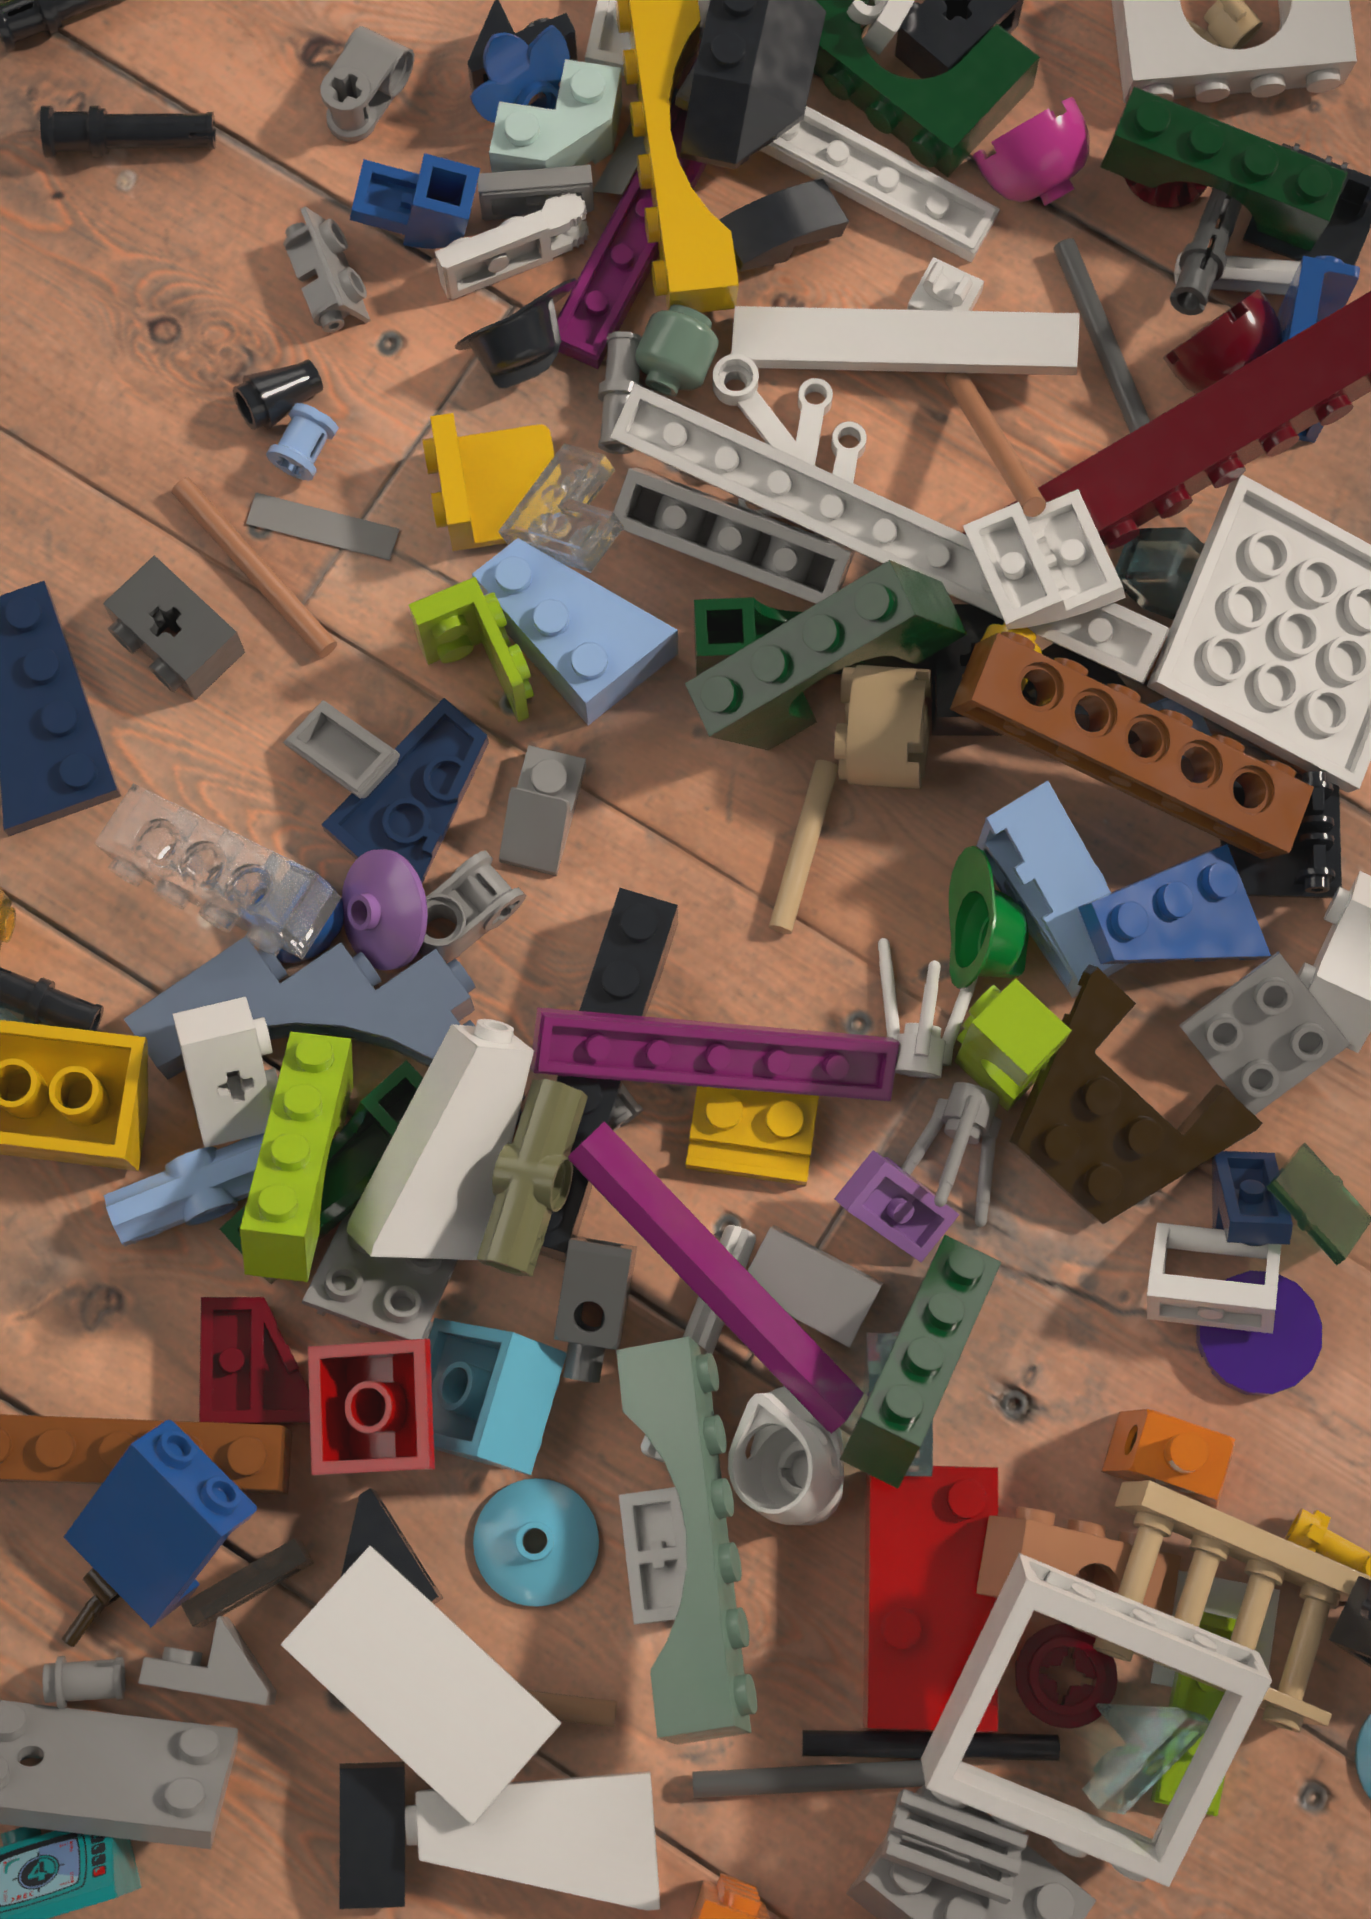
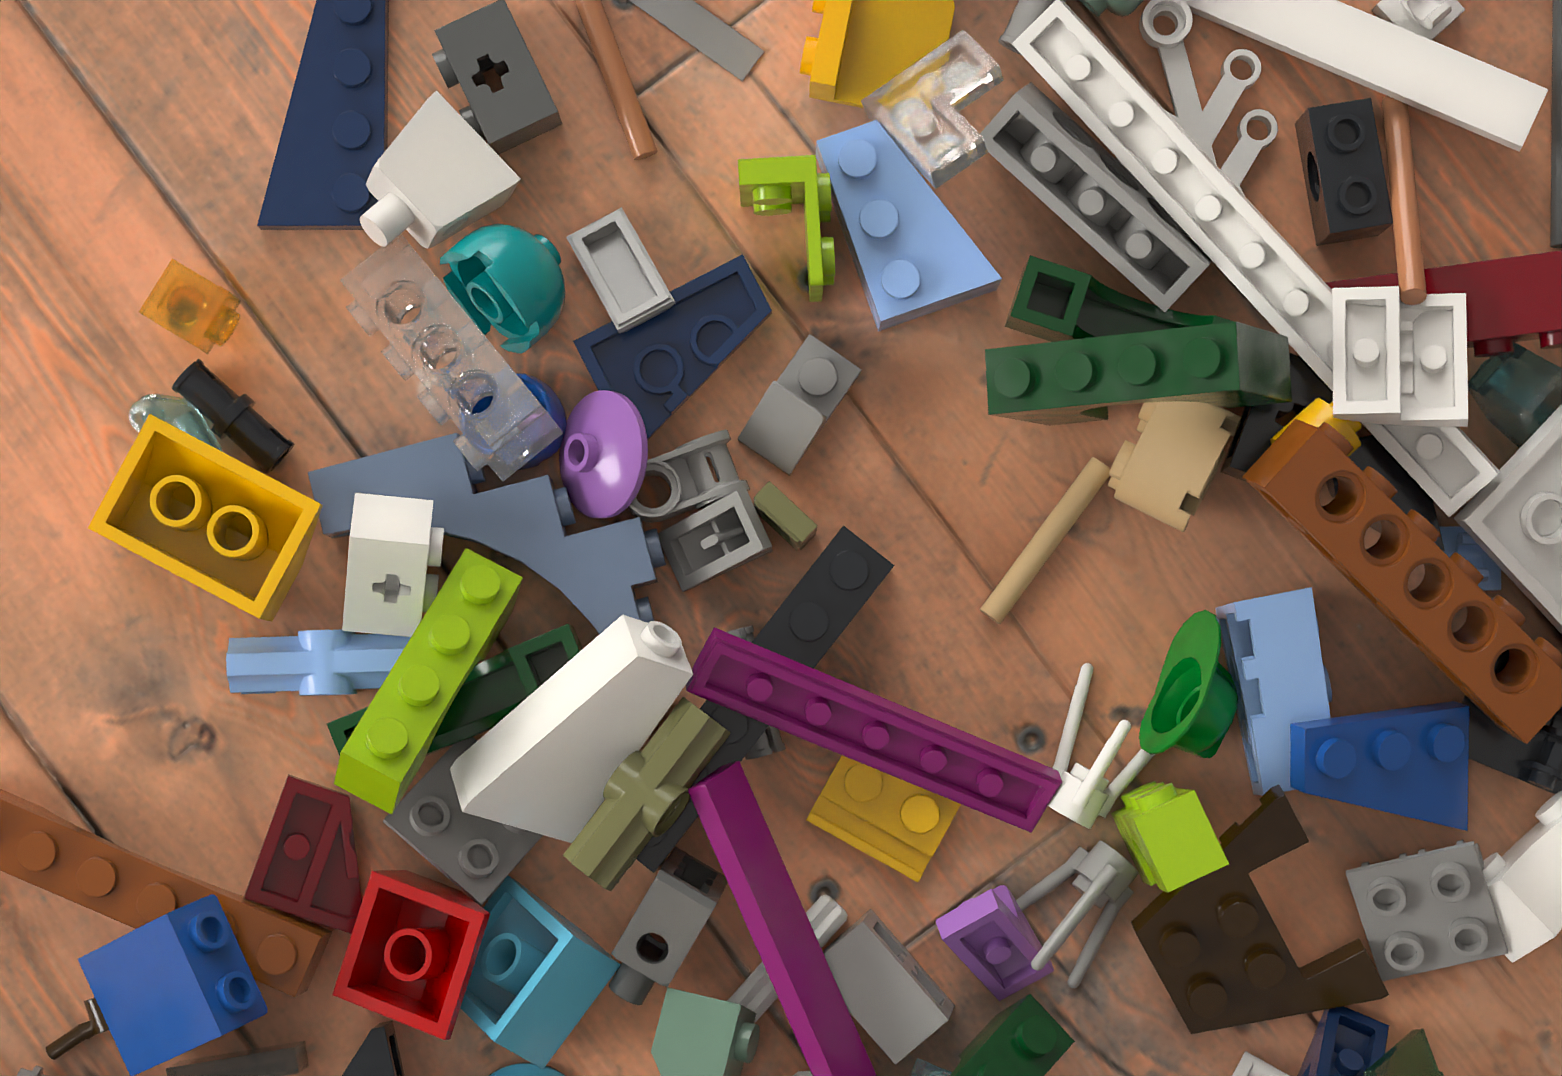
camera: 20 degrees right, 10 degrees up
(149, 728) = (435, 179): none -> white torso
(245, 791) = (507, 282): none -> teal cylinder
(514, 947) = (715, 540): none -> light grey slope
(565, 900) = (784, 516): none -> olive tile
(935, 444) = (1343, 171): none -> black brick

